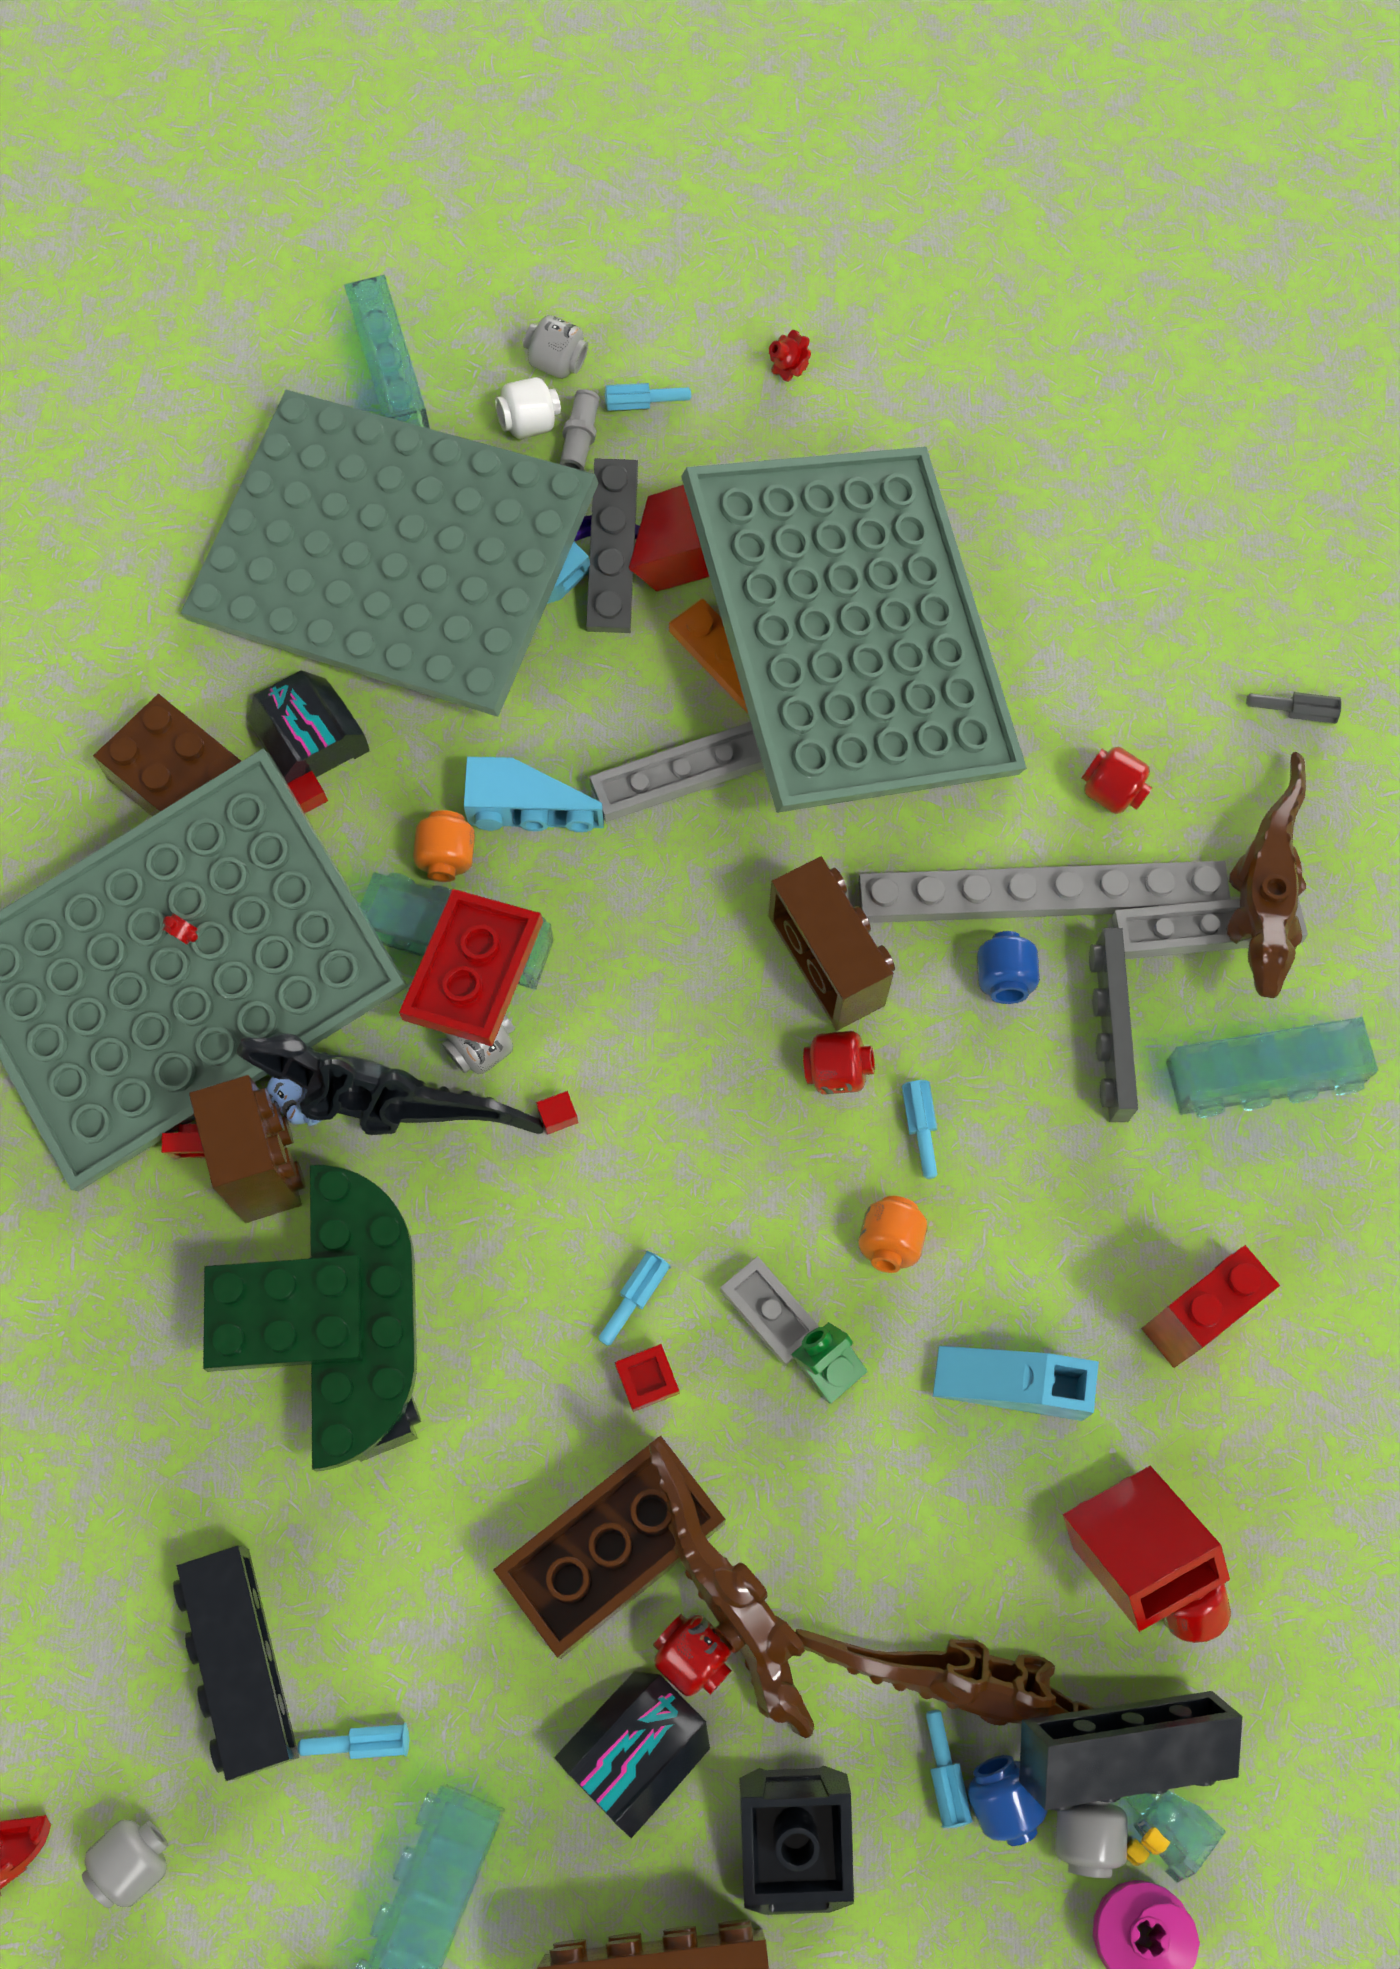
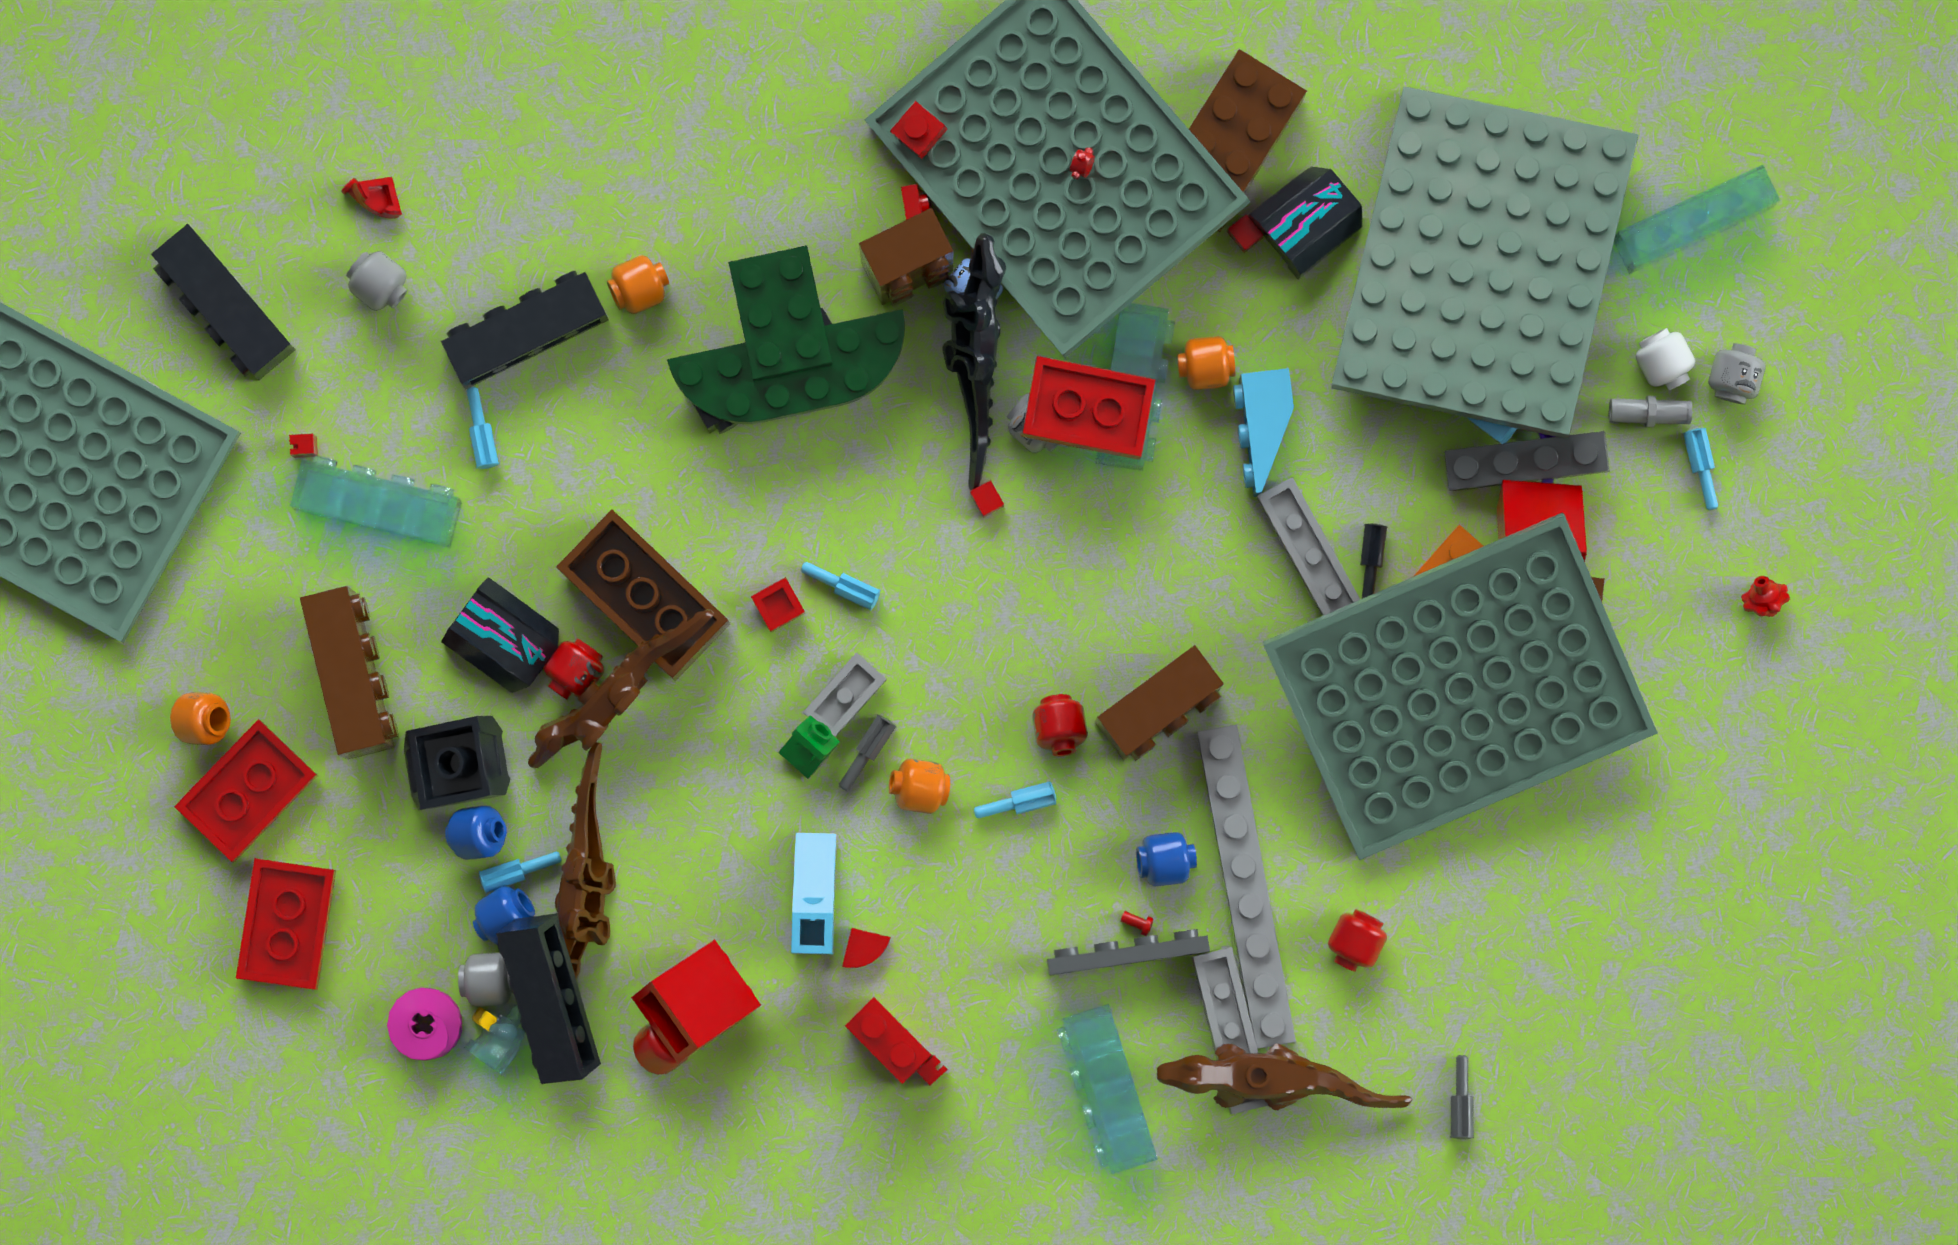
camera: 80 degrees right, 15 degrees up
(97, 1121) = (918, 130): none -> red plate
(210, 1500) = (638, 284): none -> orange head
(689, 713) = (1372, 555): none -> black axle
(838, 1292) = (868, 749): none -> dark grey axle
(894, 1823) = (476, 832): none -> blue head
(1078, 1006) = (1137, 922): none -> red piece
(1082, 1332) = (864, 948): none -> red tile

